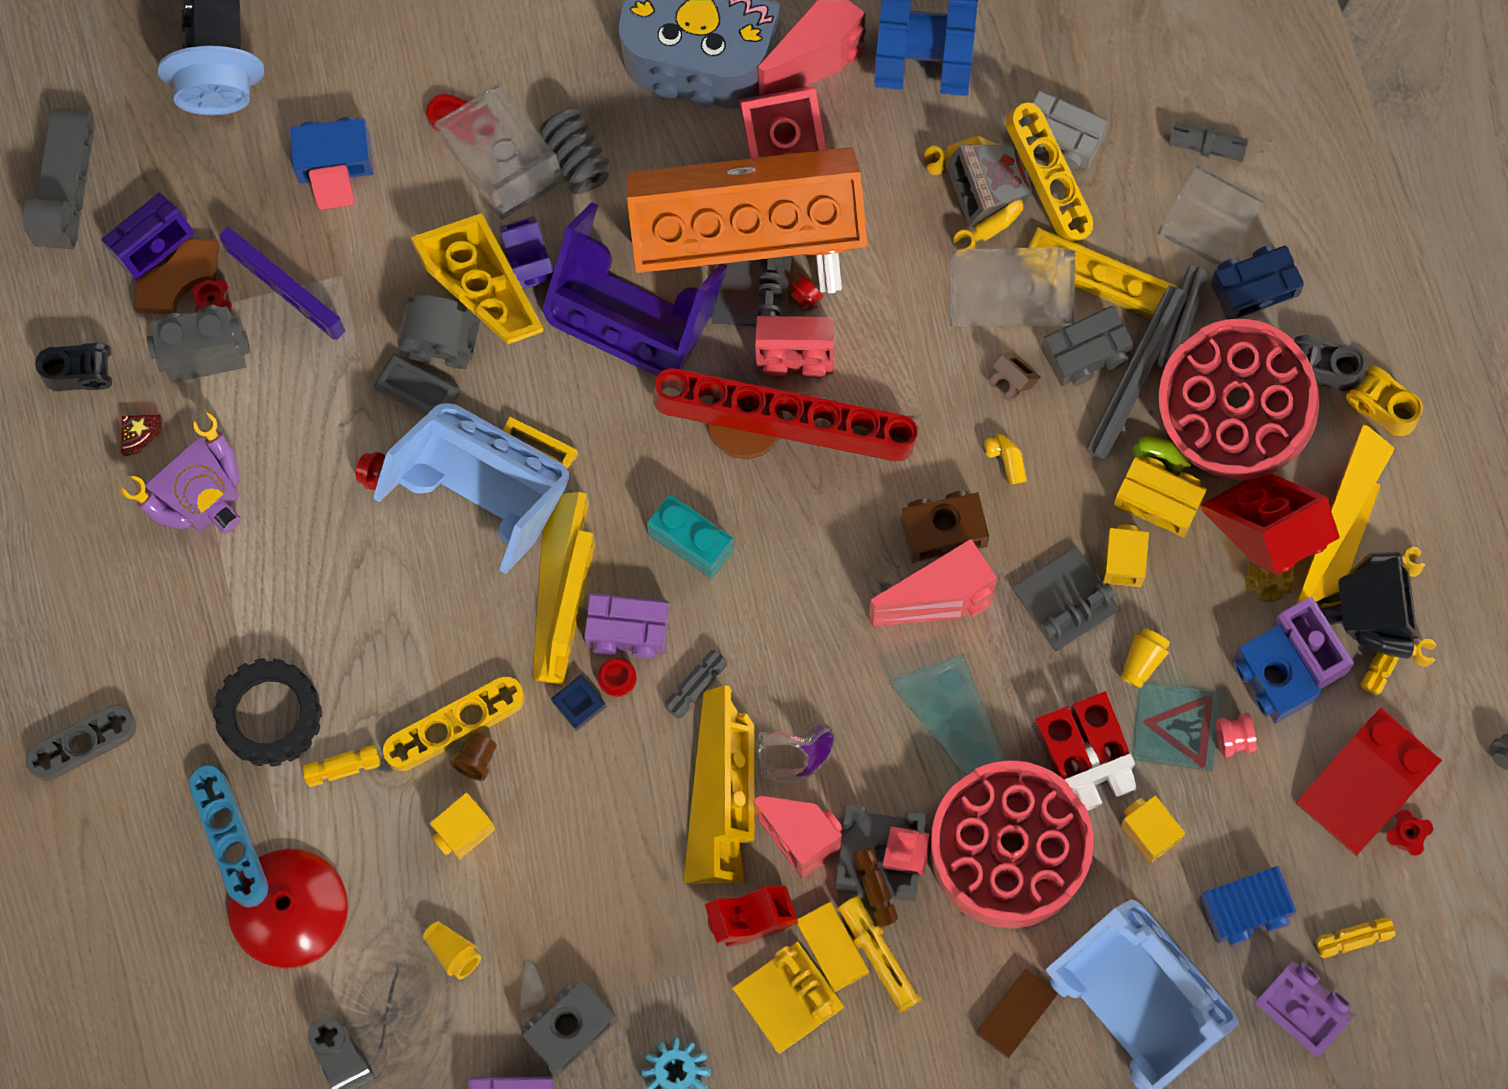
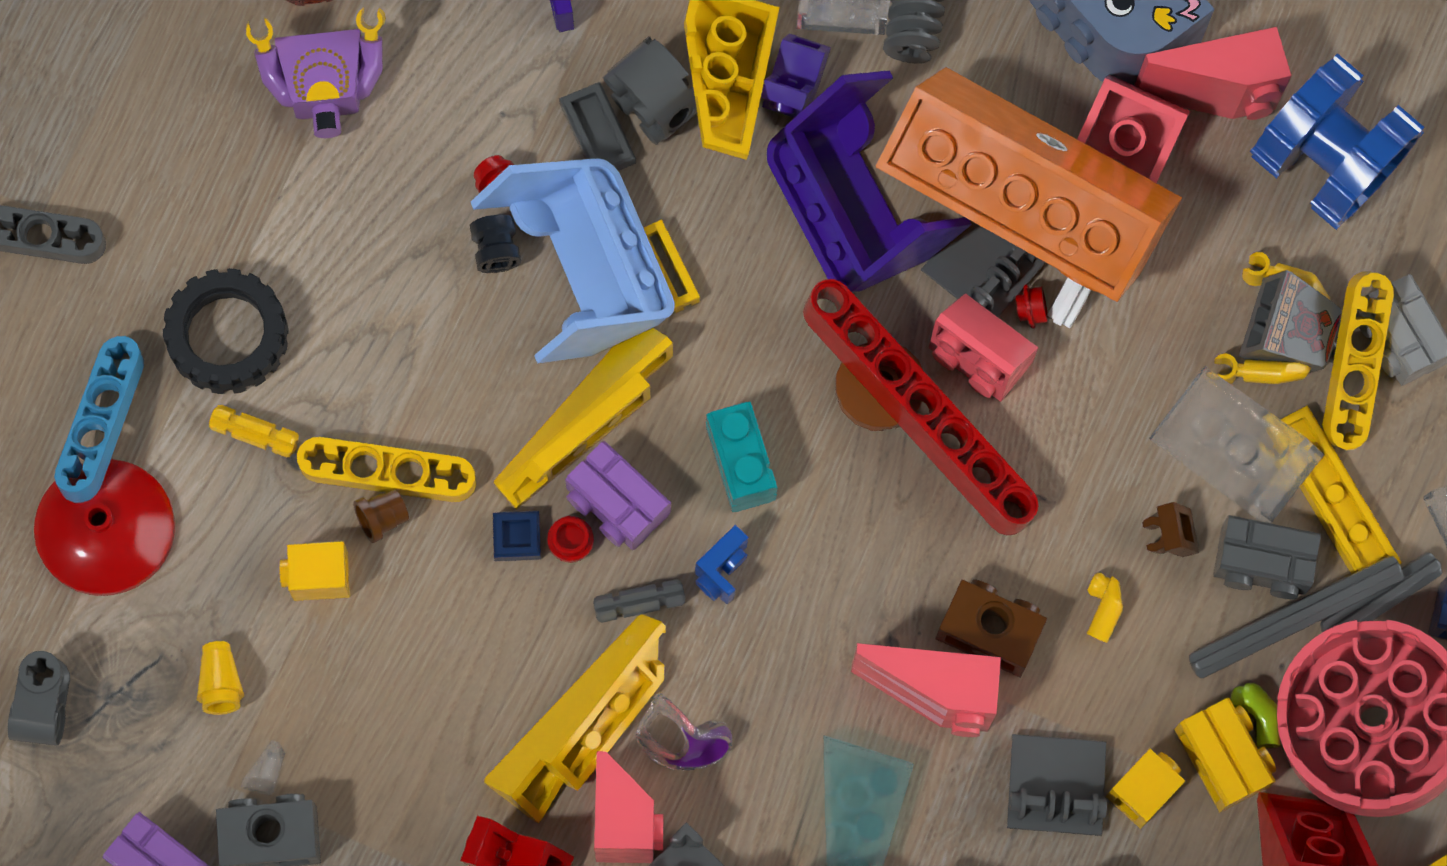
camera: 30 degrees right, 0 degrees up
(409, 516) = (495, 243): none -> black wheel
(733, 610) = (723, 556): none -> blue bracket

